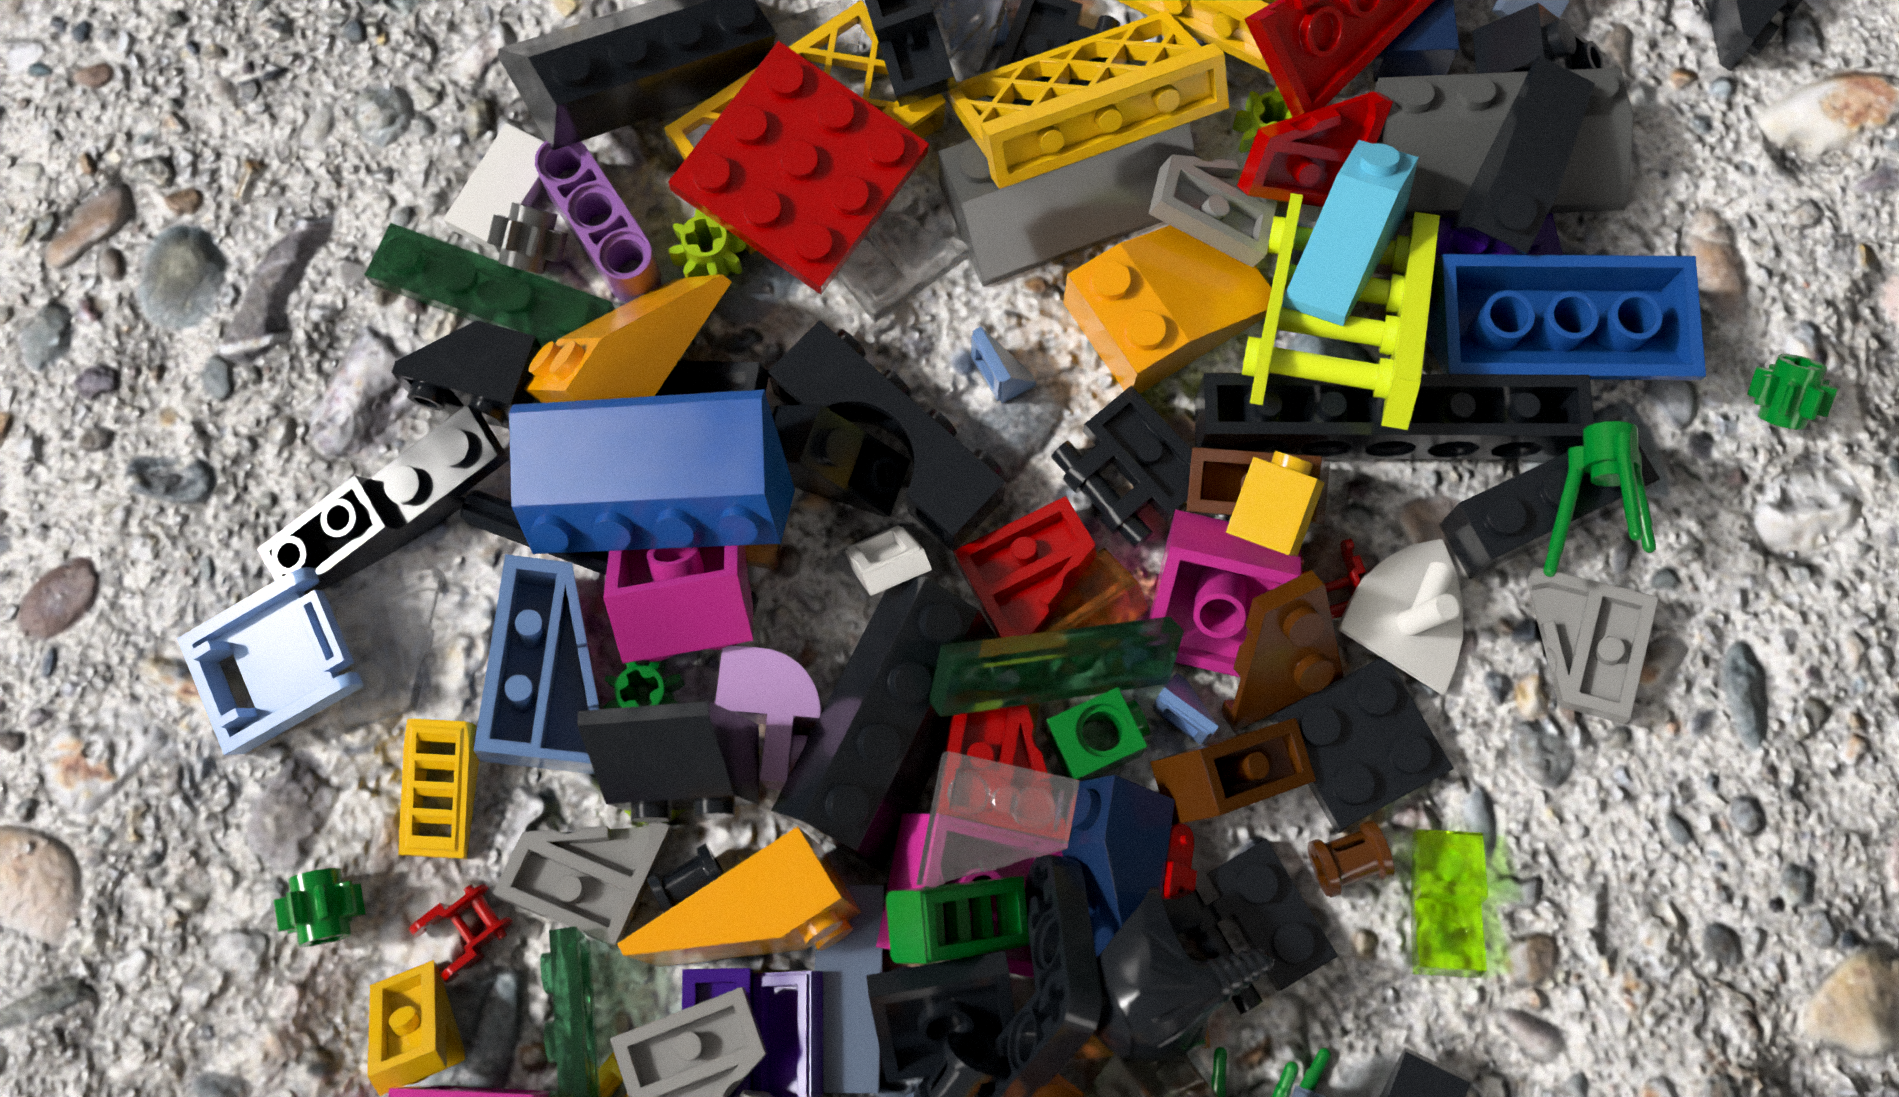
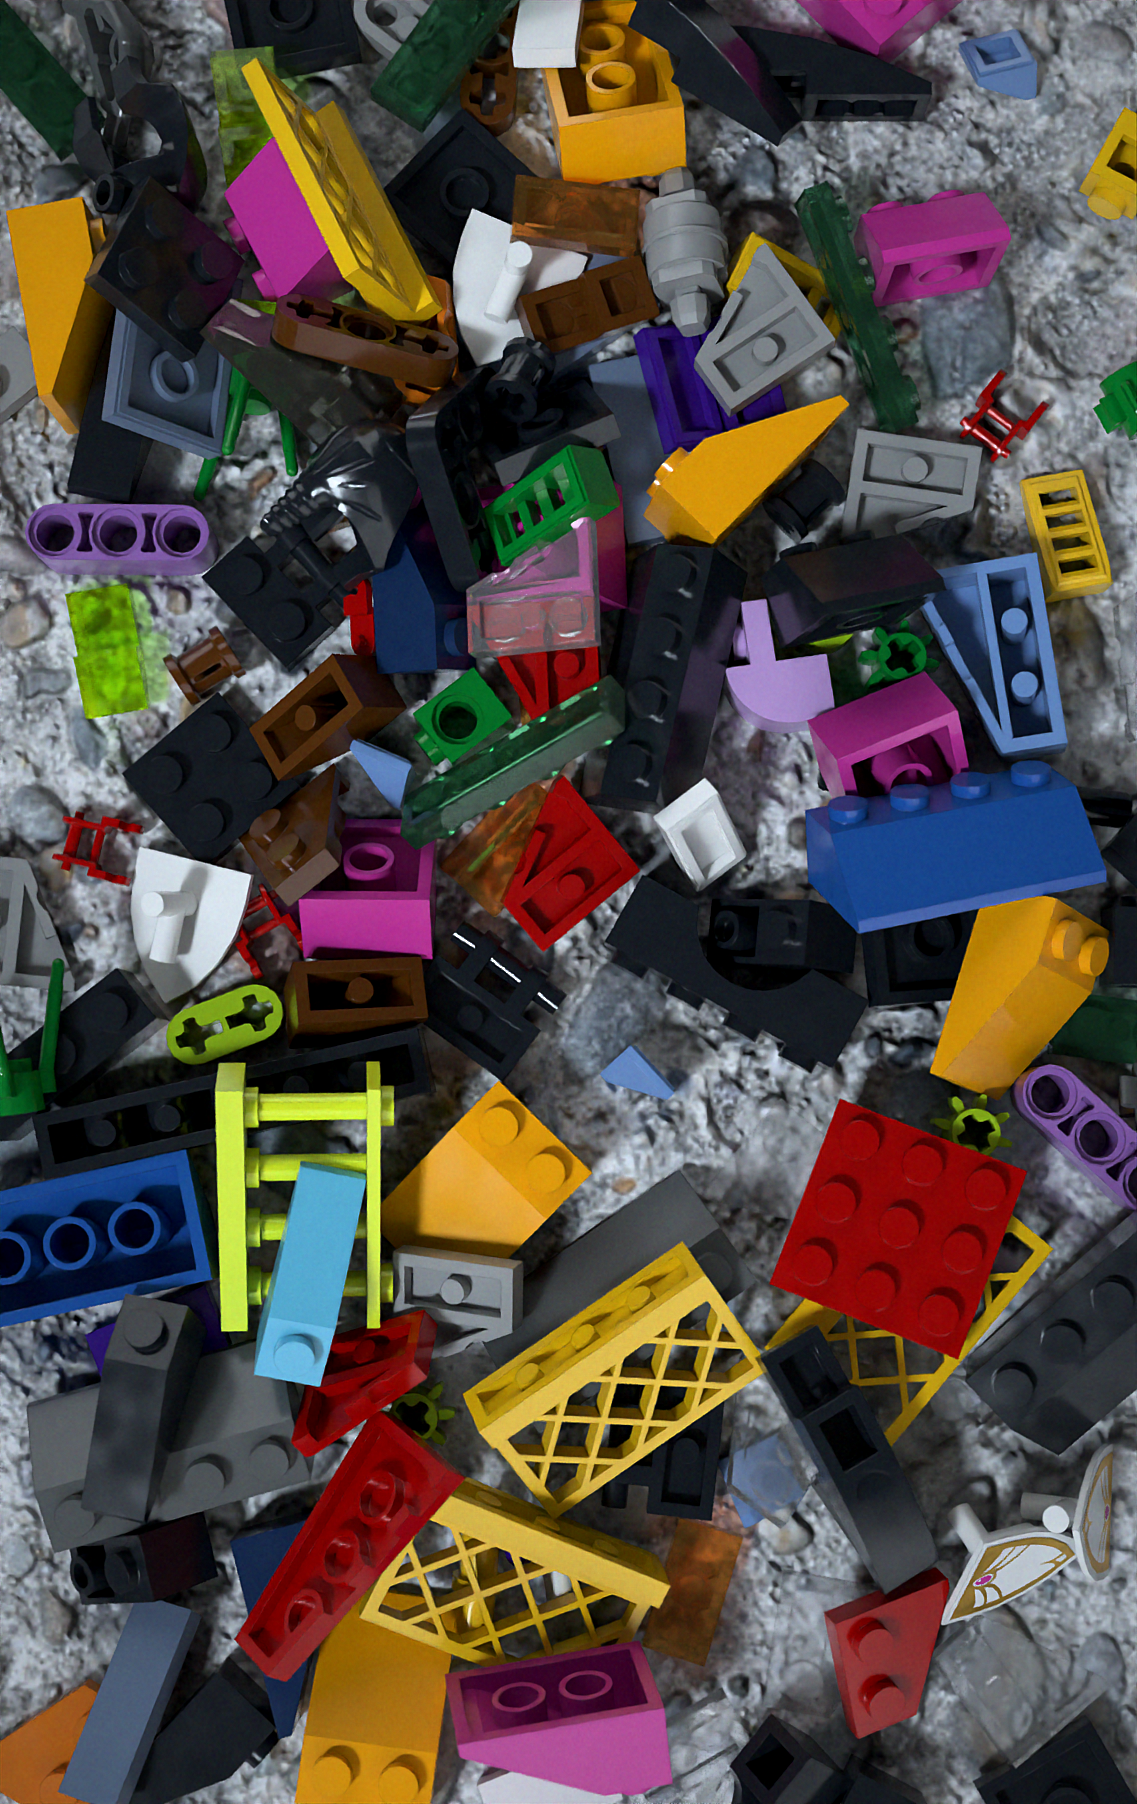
camera: 170 degrees right, 10 degrees up
(411, 1029) = (1017, 316): yellow slope -> none
(1276, 503) = (334, 959): yellow brick -> none
(1387, 517) = (221, 1011): none -> lime beam
(1449, 1015) = (98, 523): none -> medium lavender beam
(1492, 676) = (71, 846): none -> red piece

